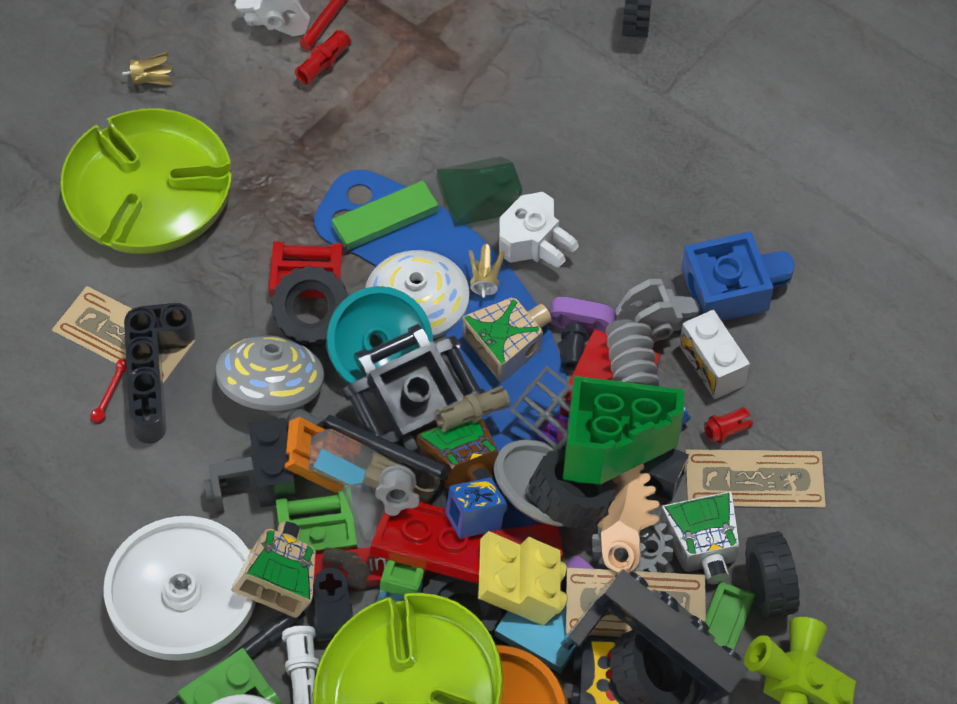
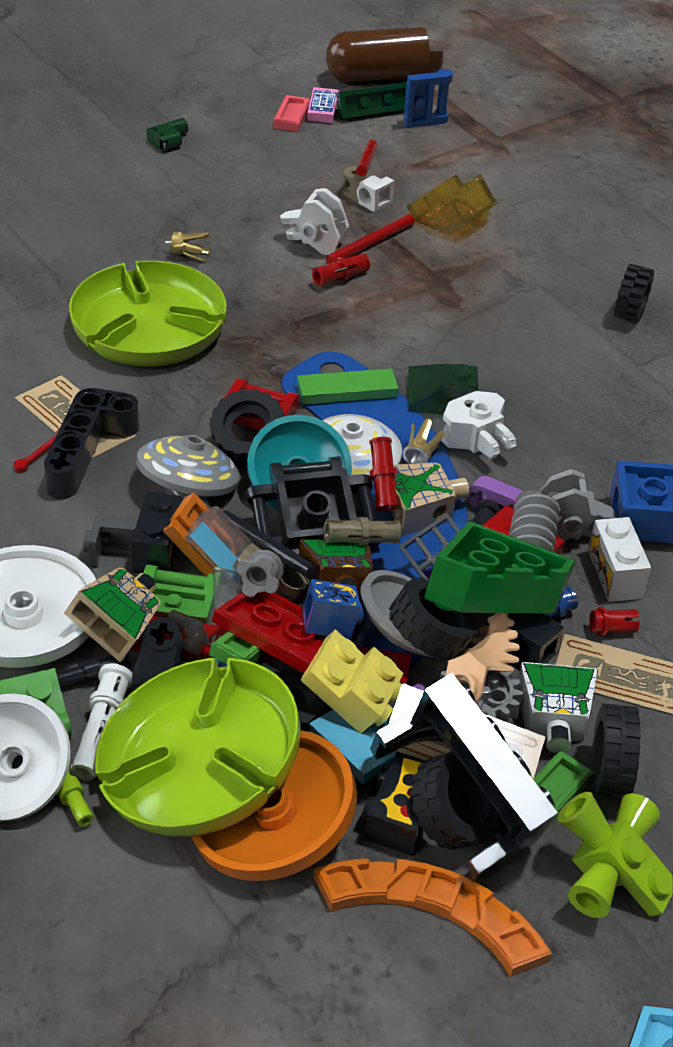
camera: 15 degrees right, 15 degrees down
(468, 331) = (383, 473): none -> red pin

